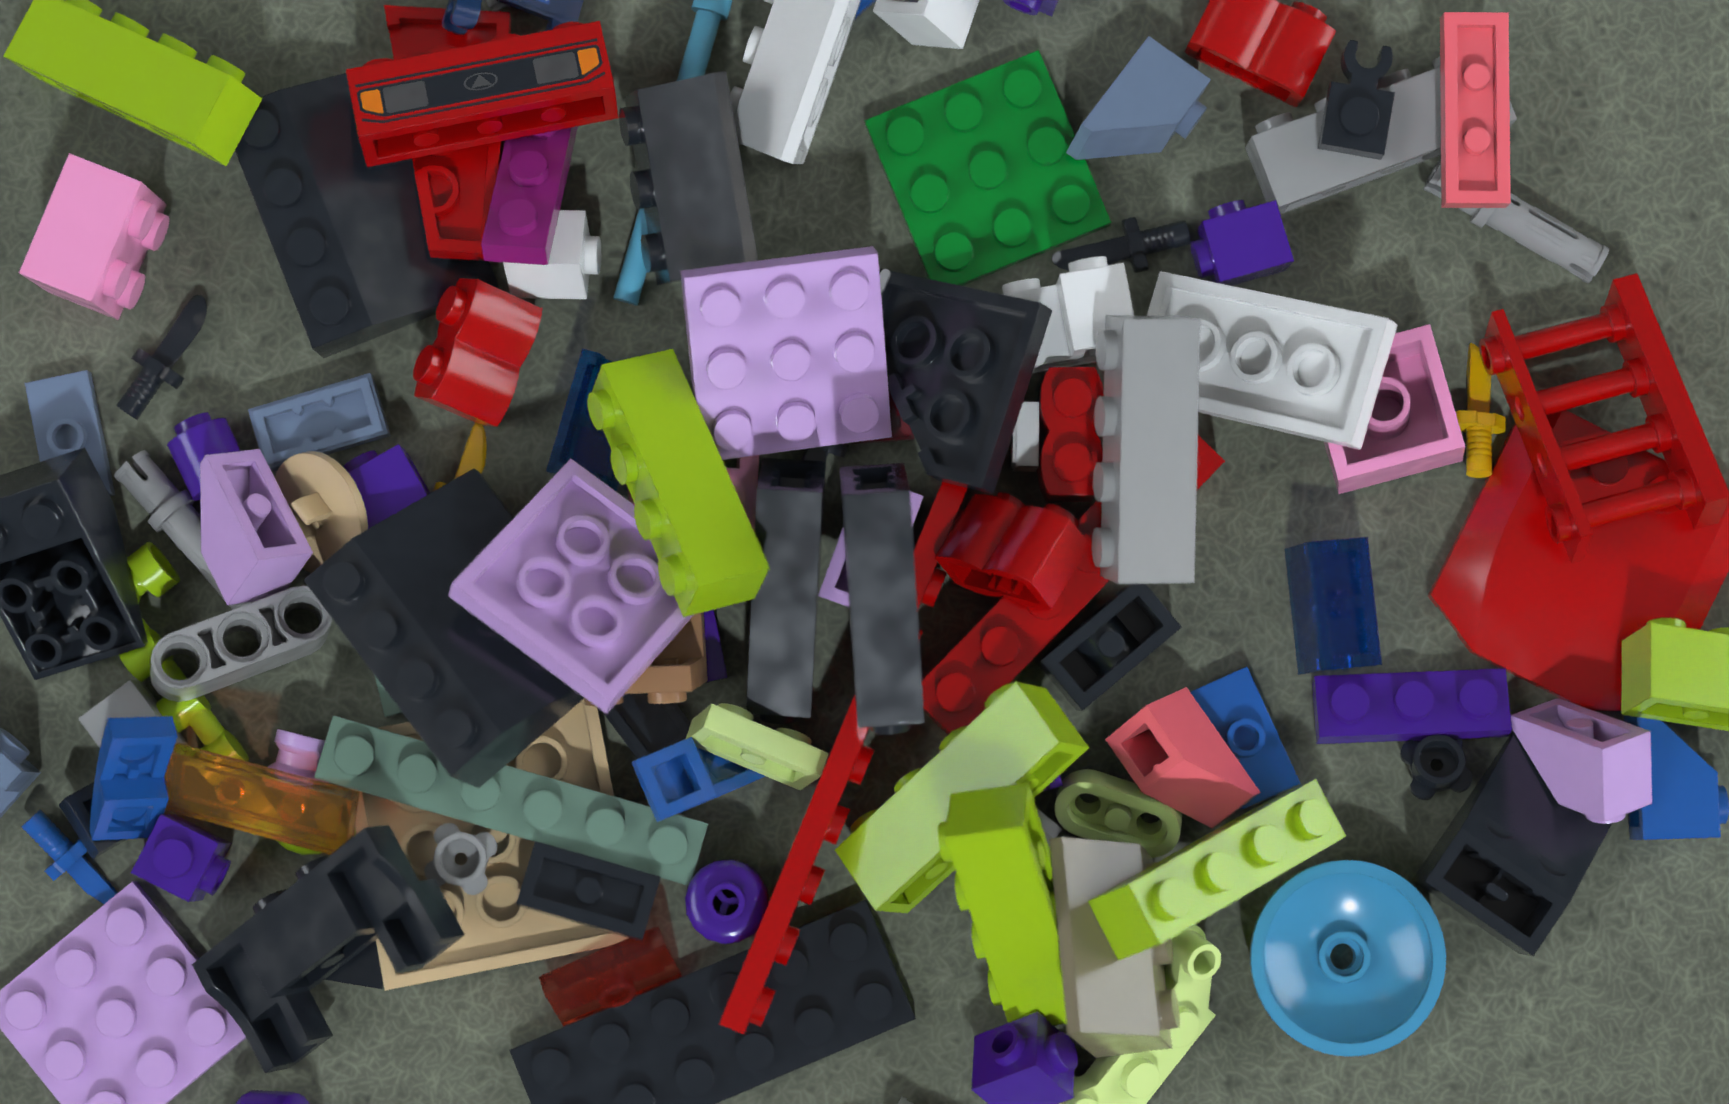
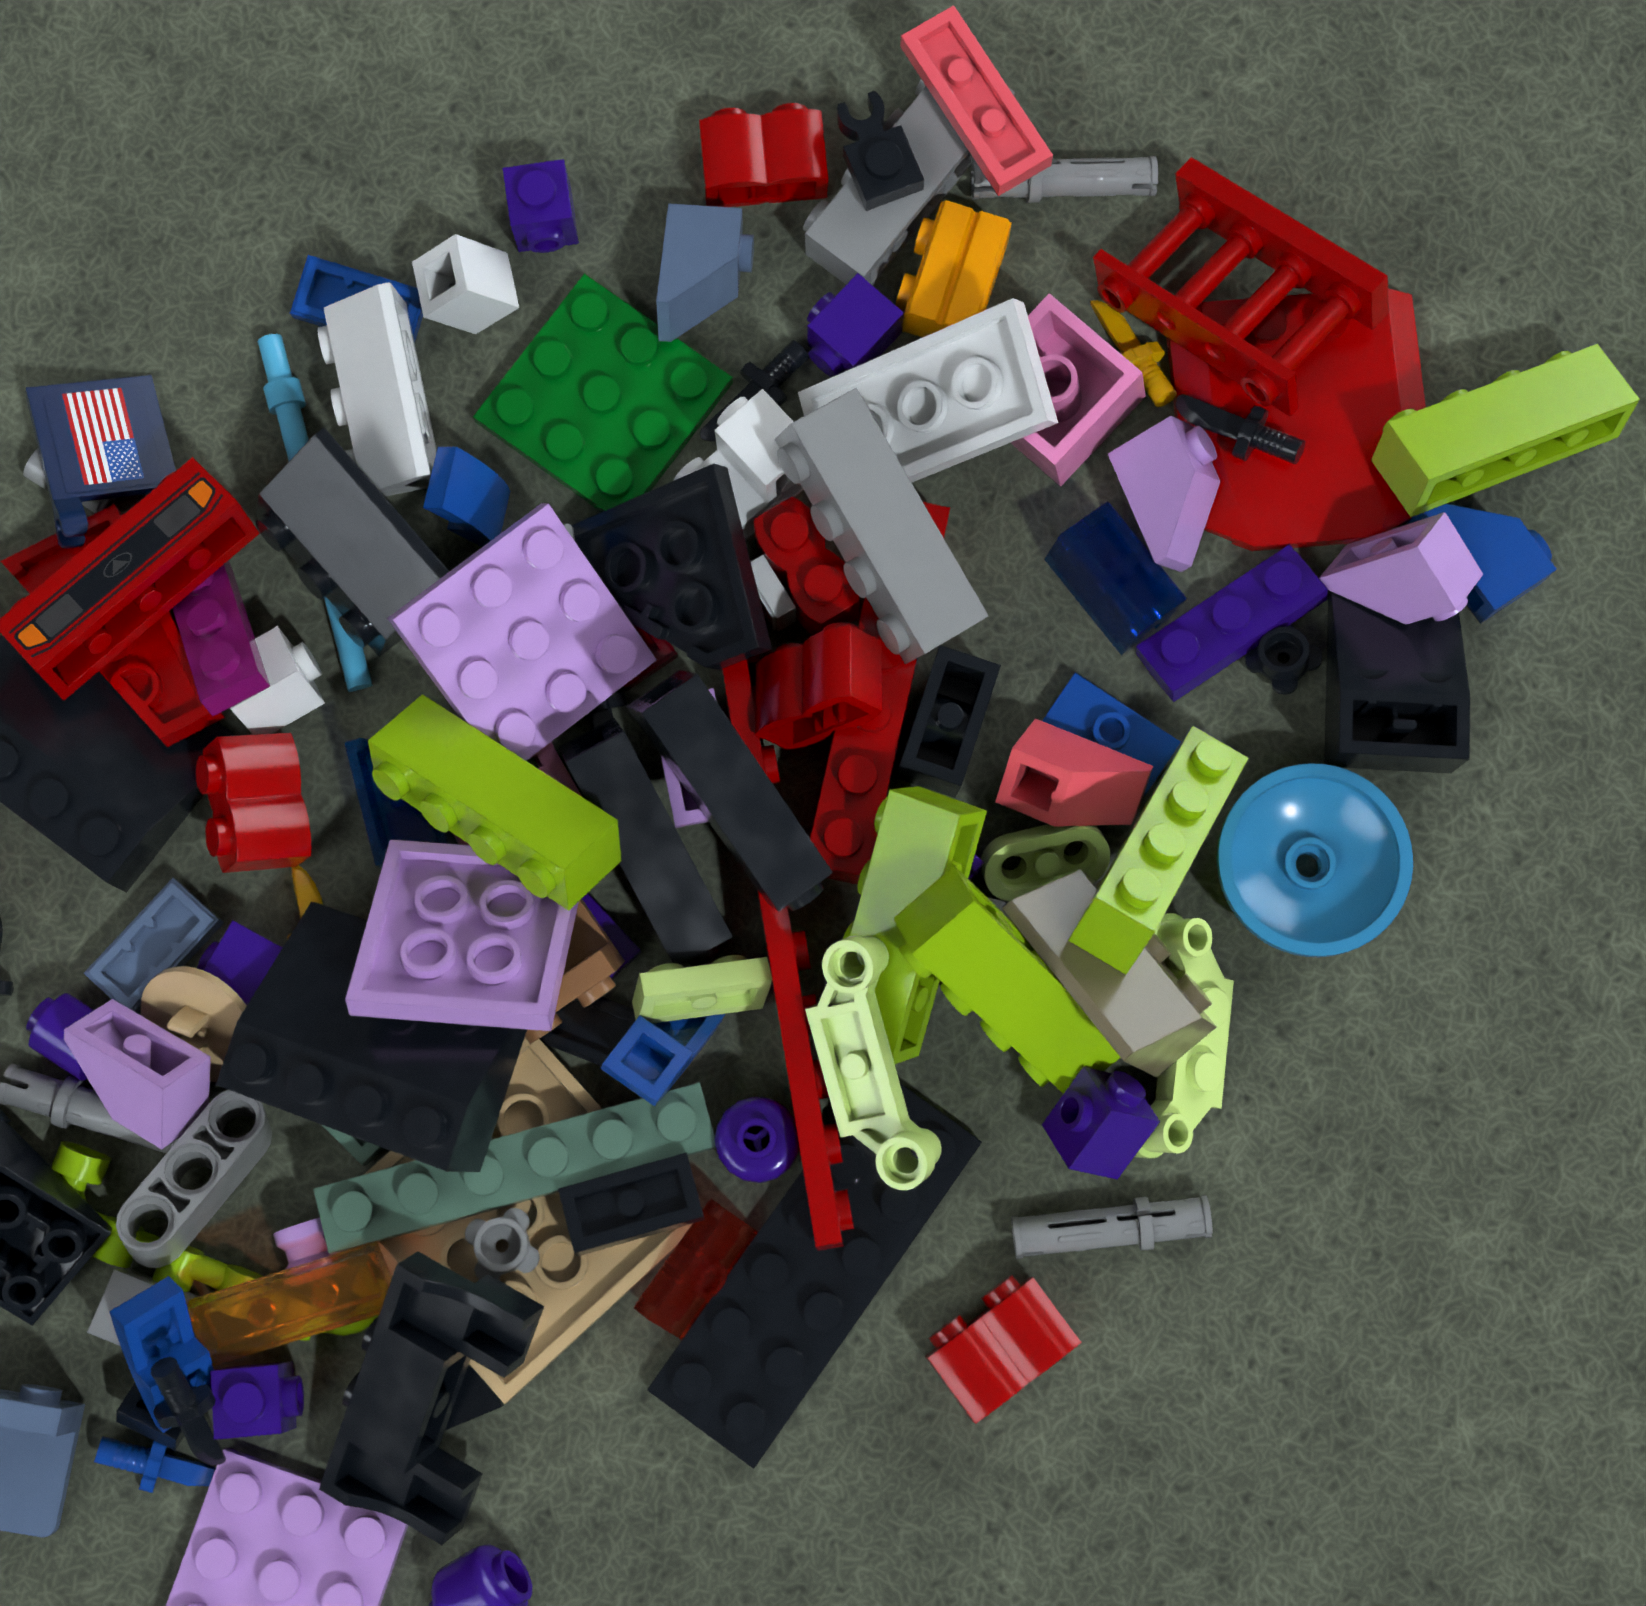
camera: 30 degrees left, 5 degrees down
(122, 834) = (185, 1408): none -> black piece
(815, 196) = (467, 495): none -> blue slope
(849, 898) = (861, 1065): none -> yellowish green plate
(1364, 248) = (957, 268): none -> light orange brick
(1428, 558) = (1169, 487): none -> lavender slope
(1528, 552) = (1247, 432): none -> black piece

